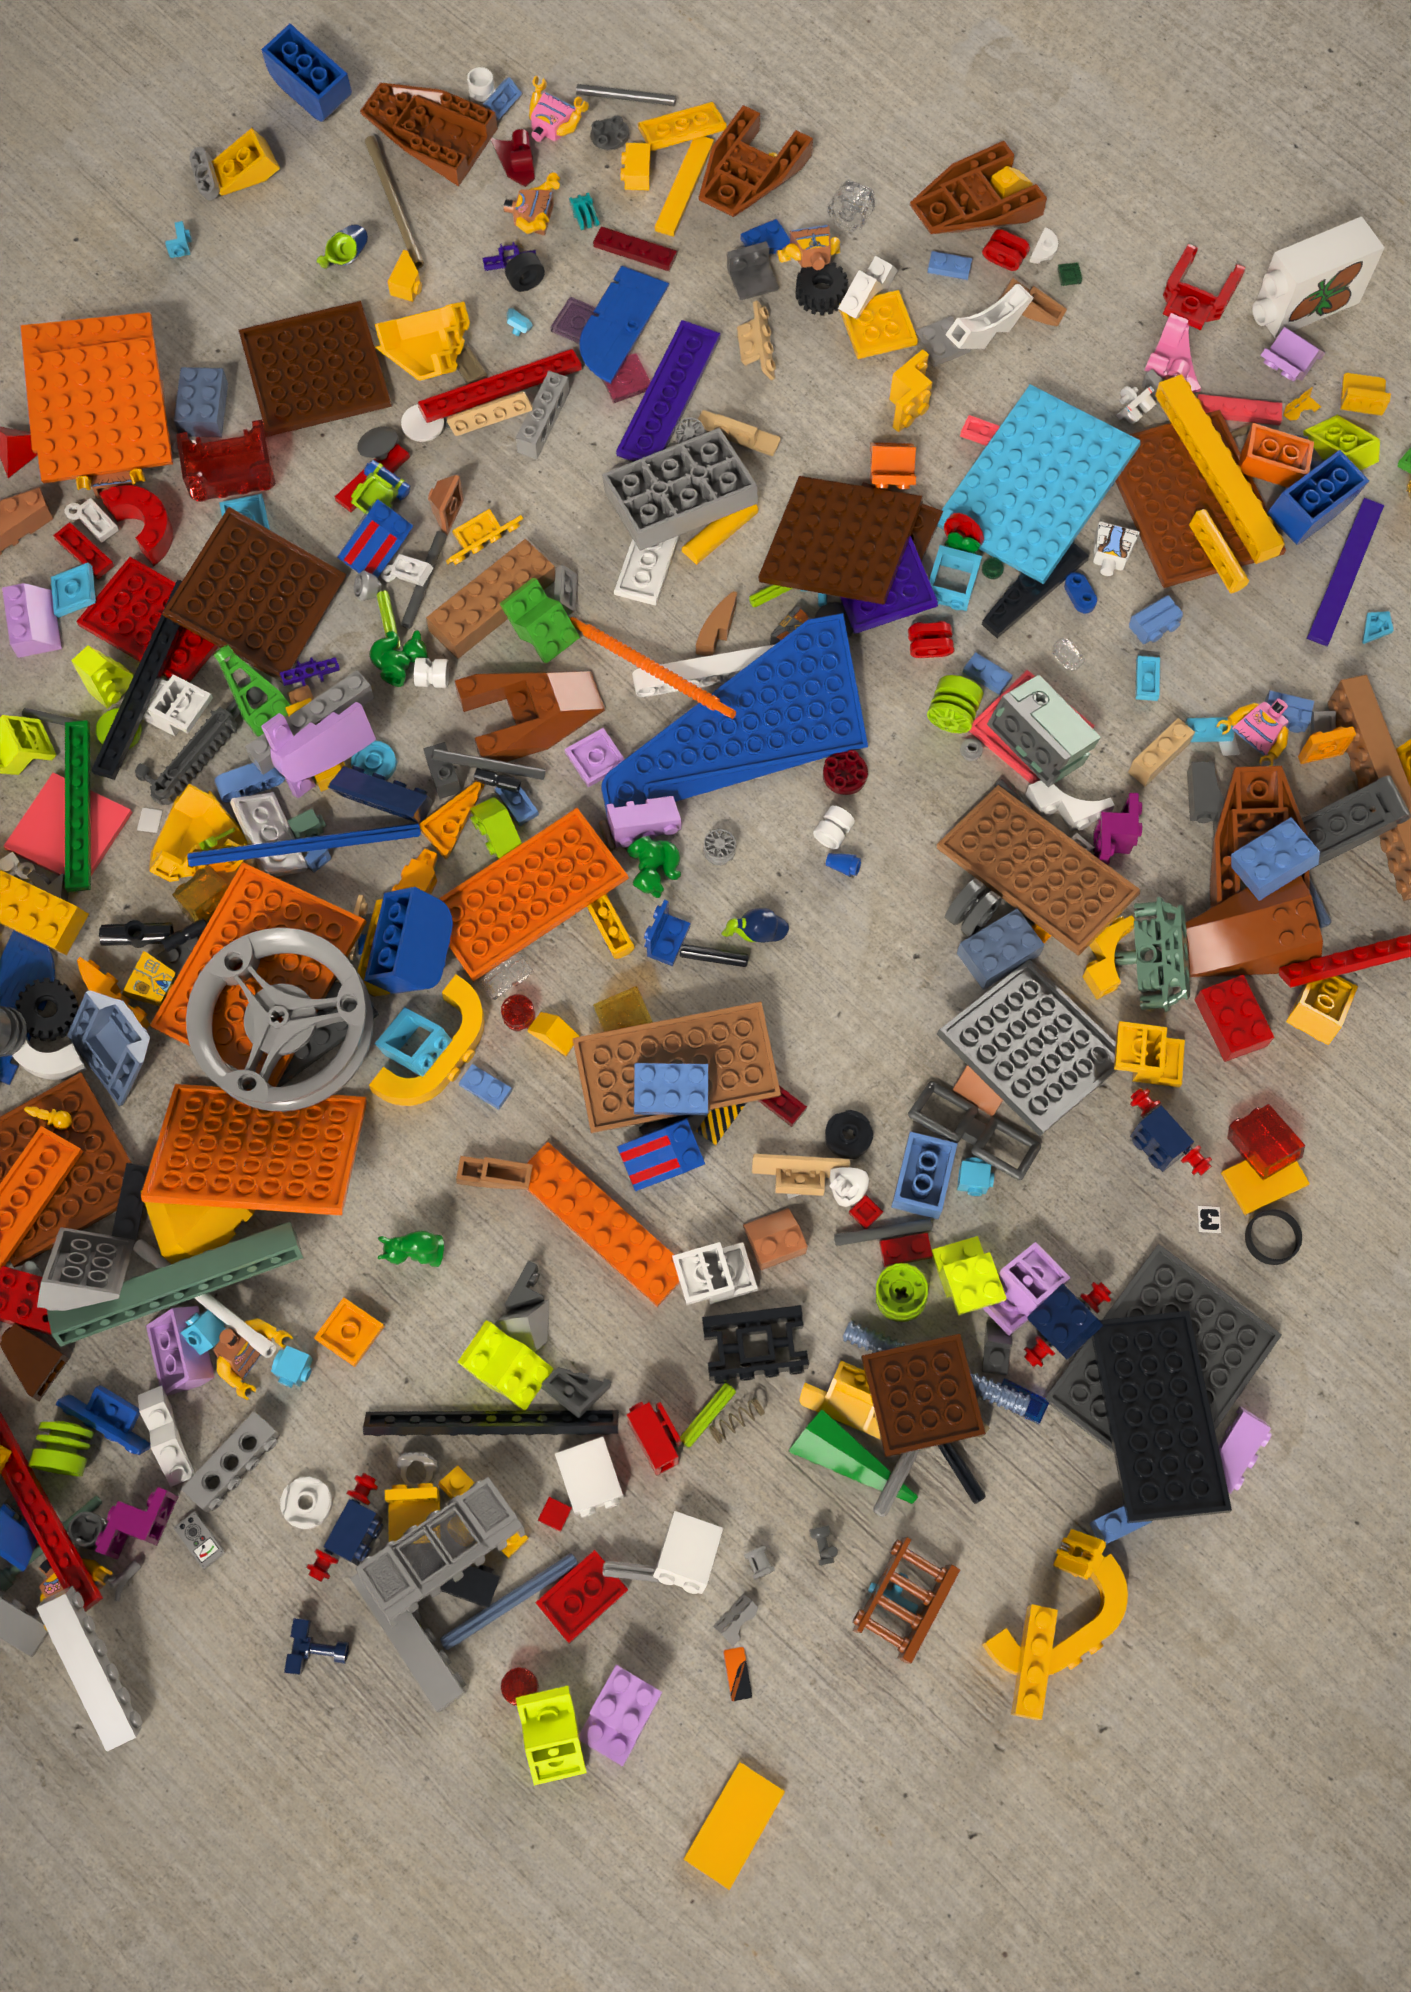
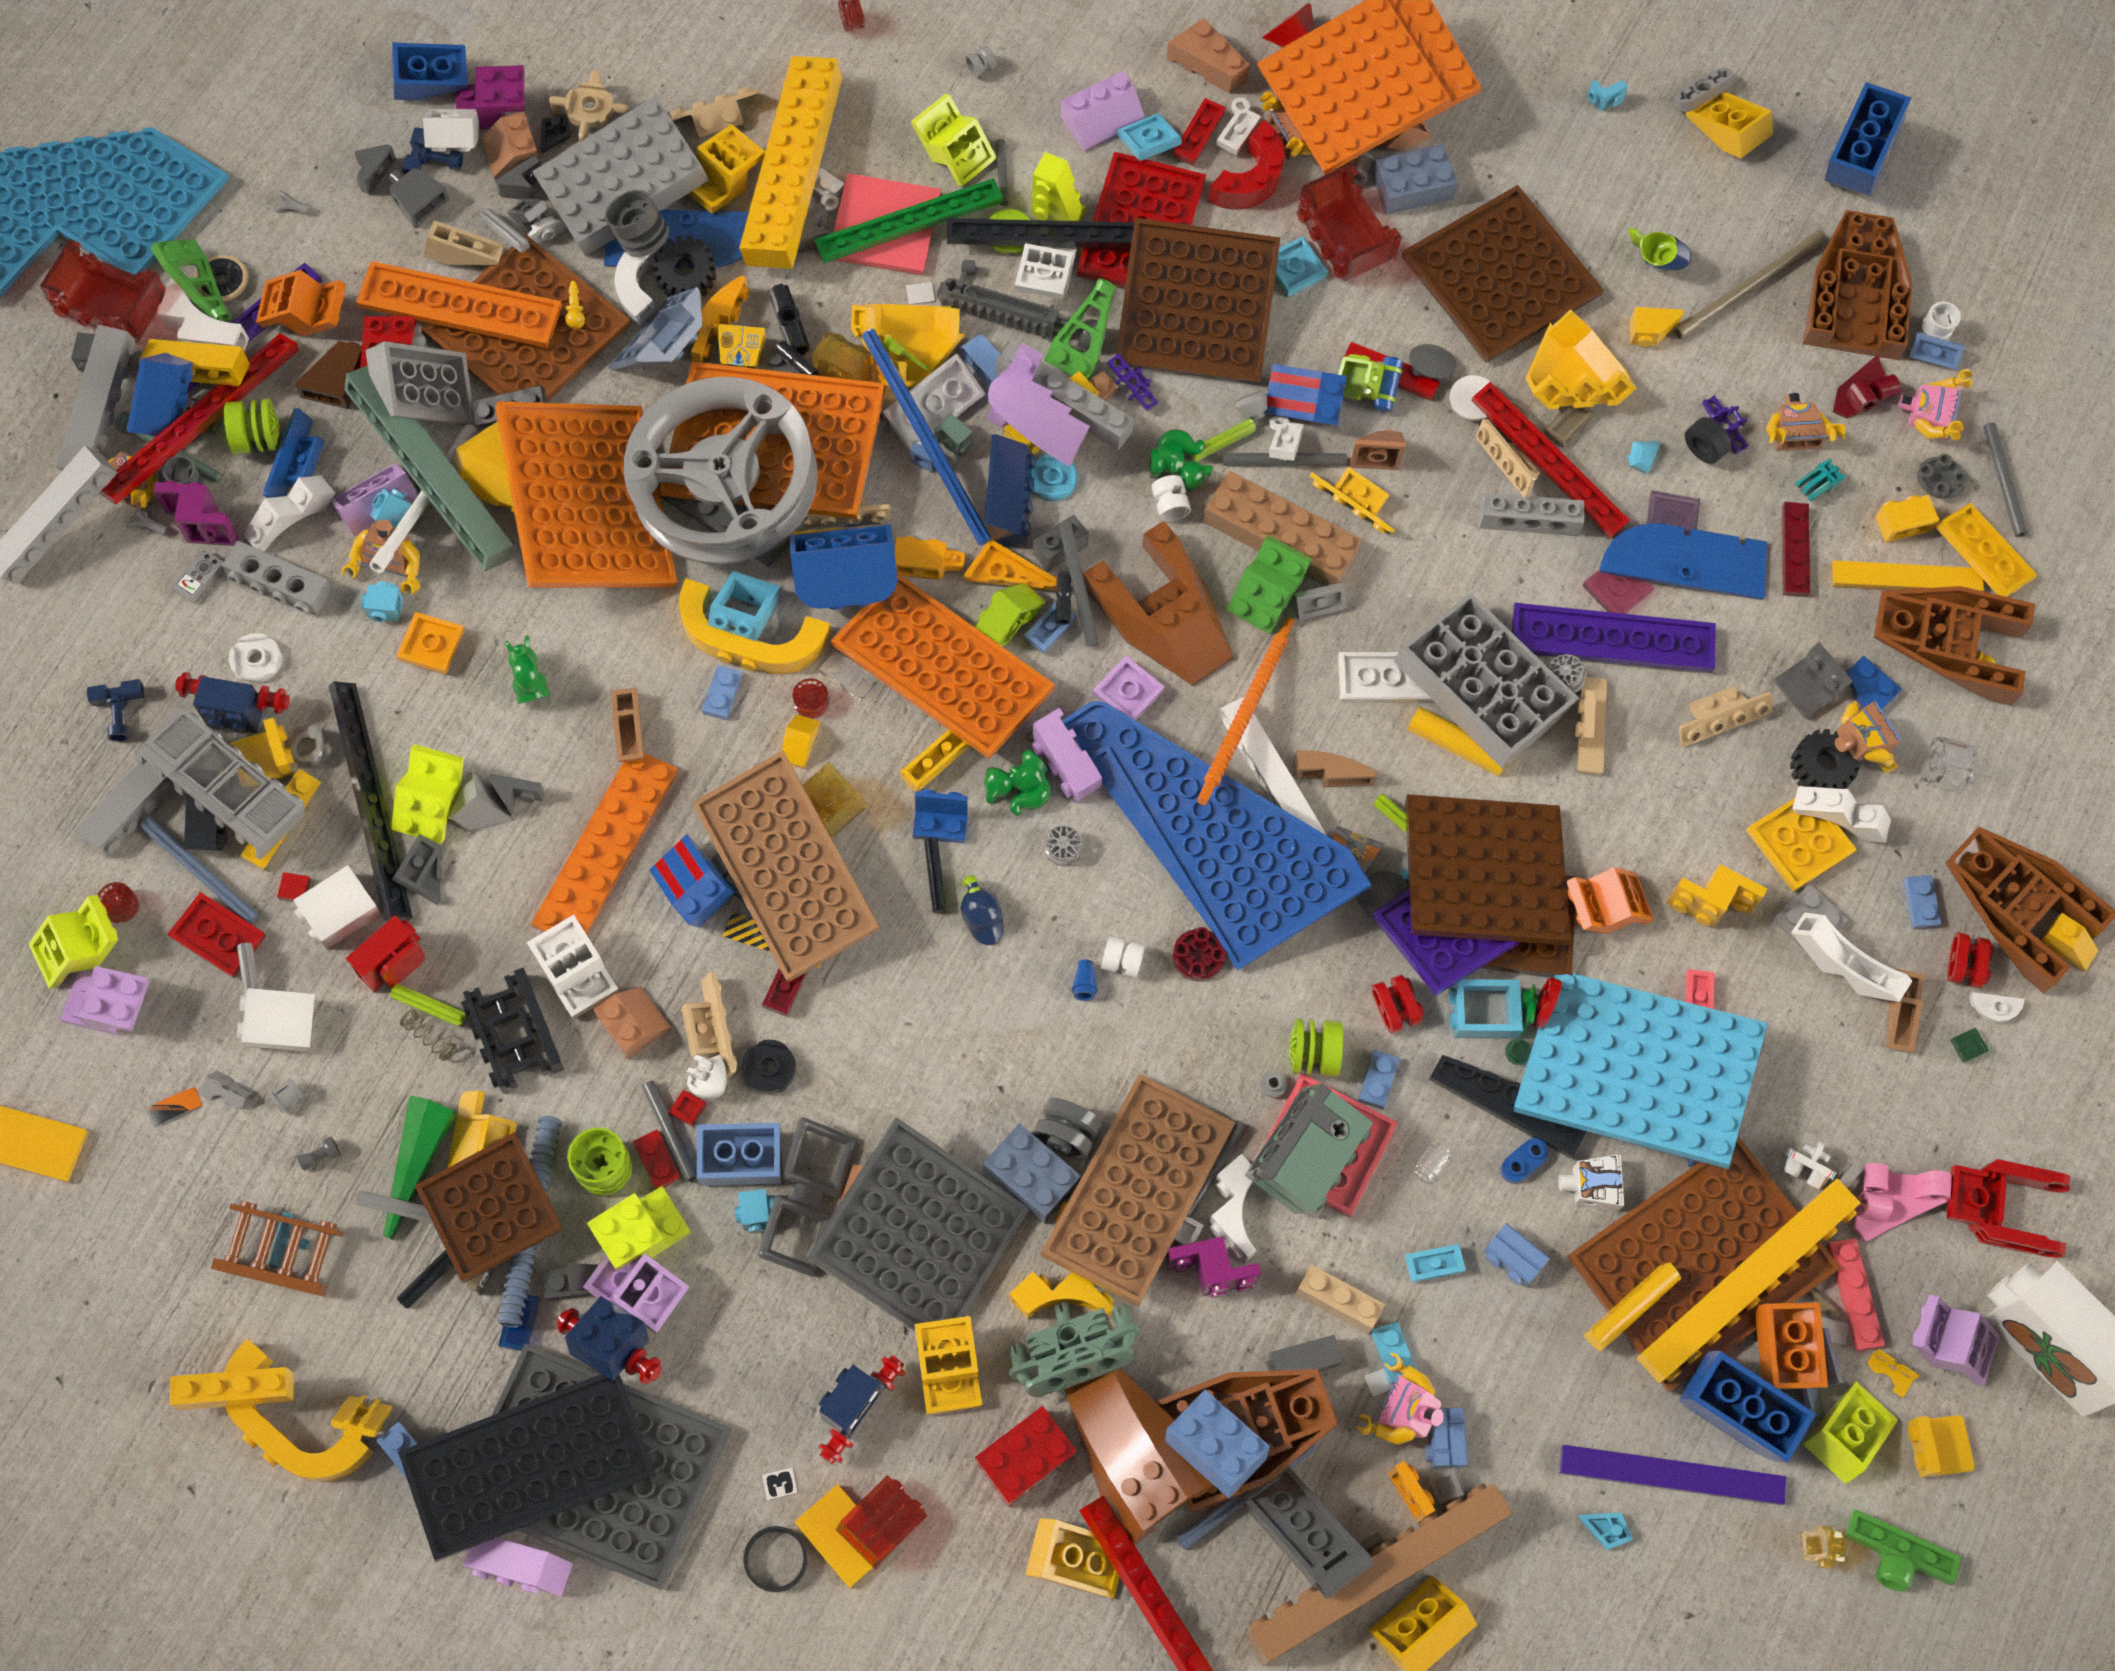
camera: 70 degrees right, 0 degrees up
(670, 1089) = (753, 862): medium blue brick -> none

